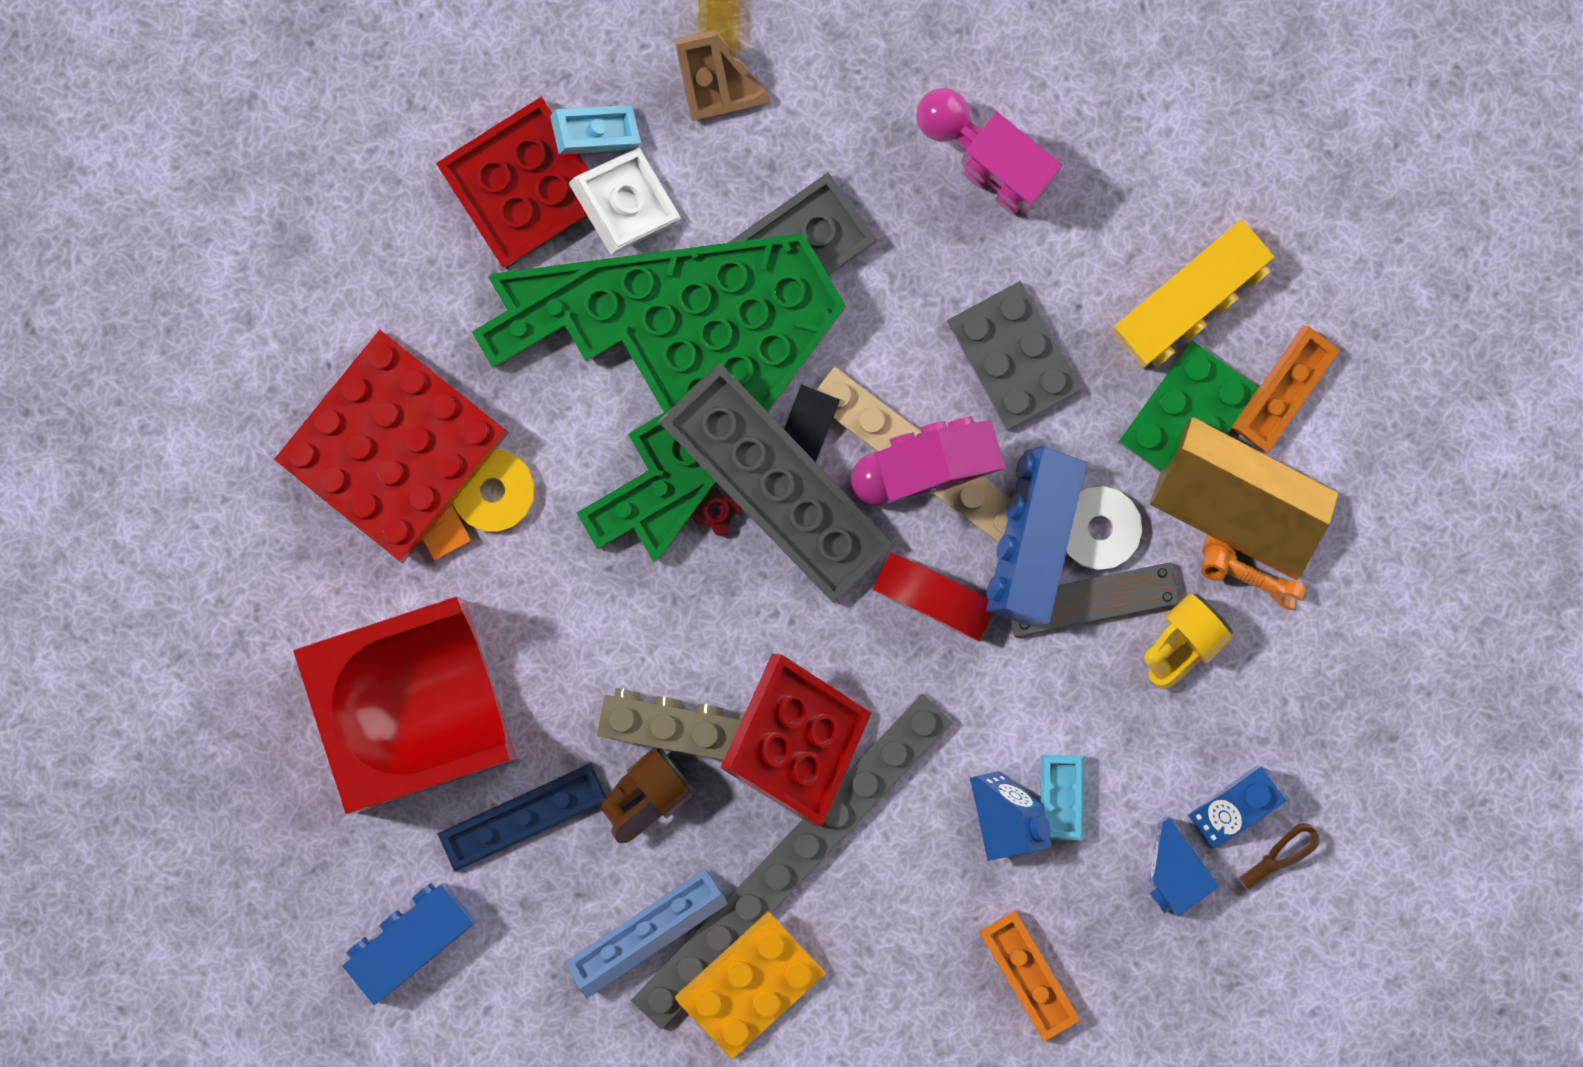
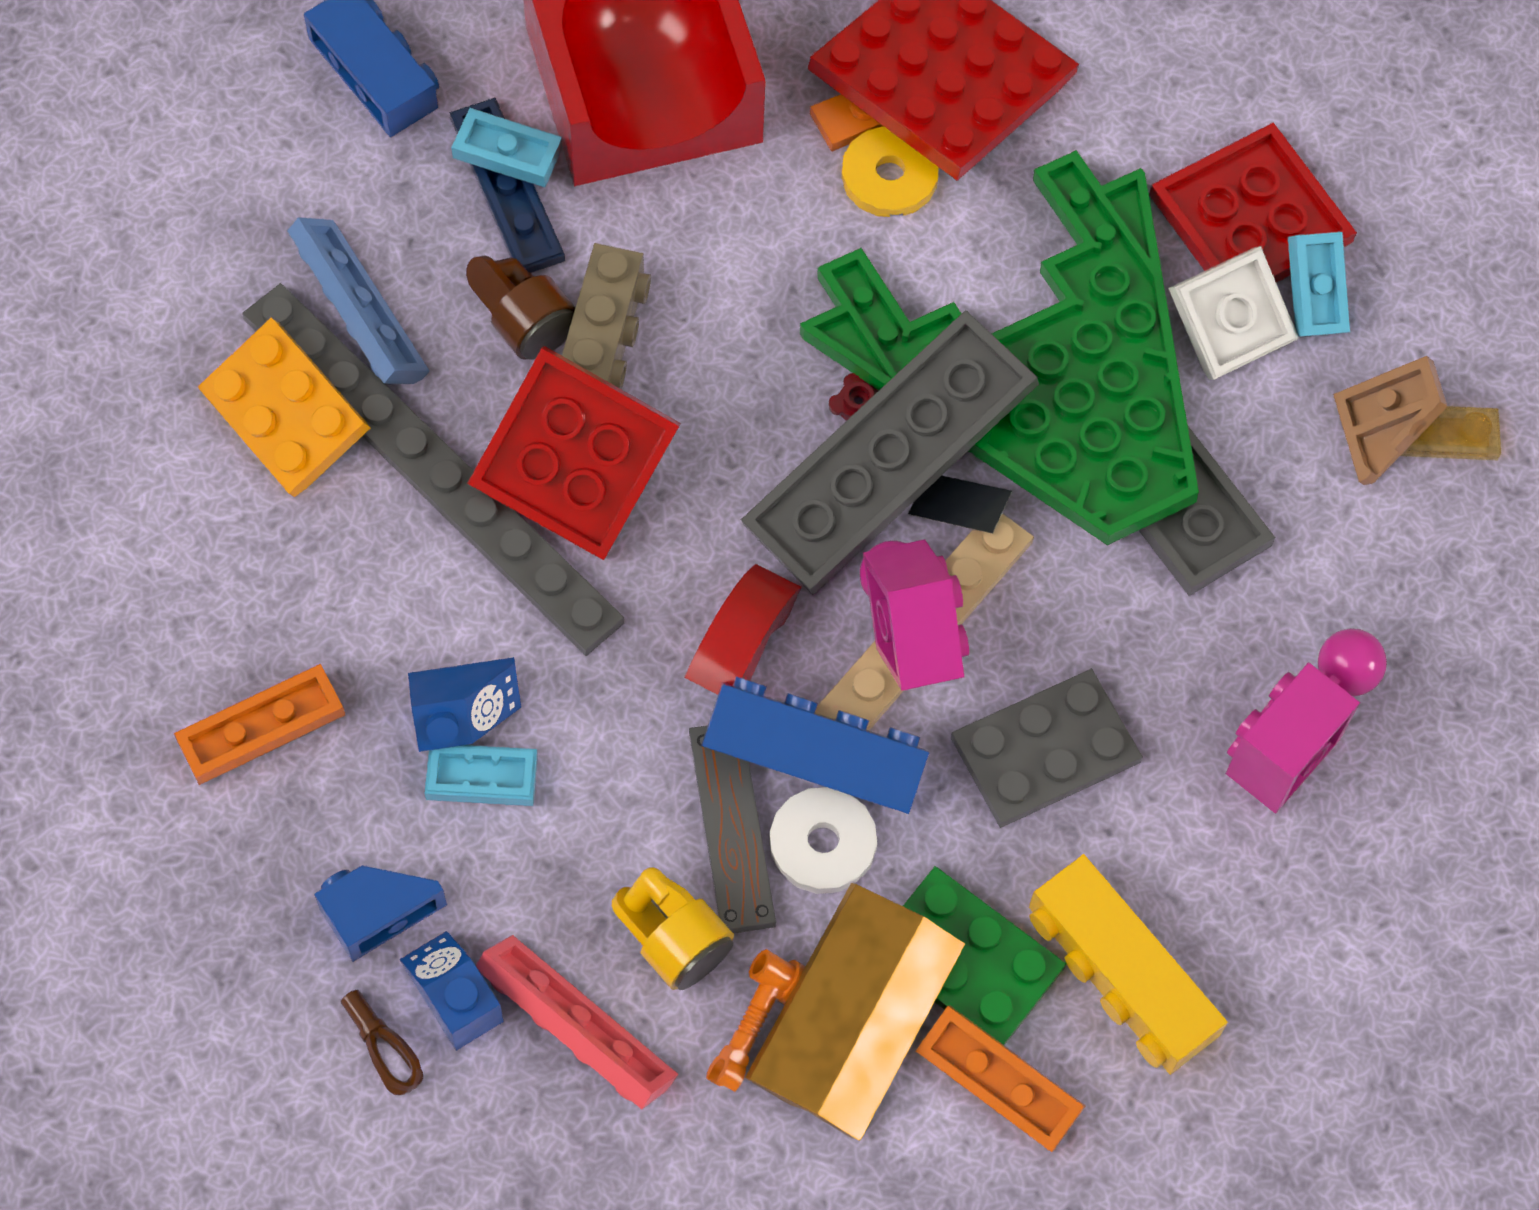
camera: 90 degrees right, 20 degrees down
(497, 817) = (507, 147): none -> medium azure plate
(1258, 710) = (576, 1021): none -> coral plate

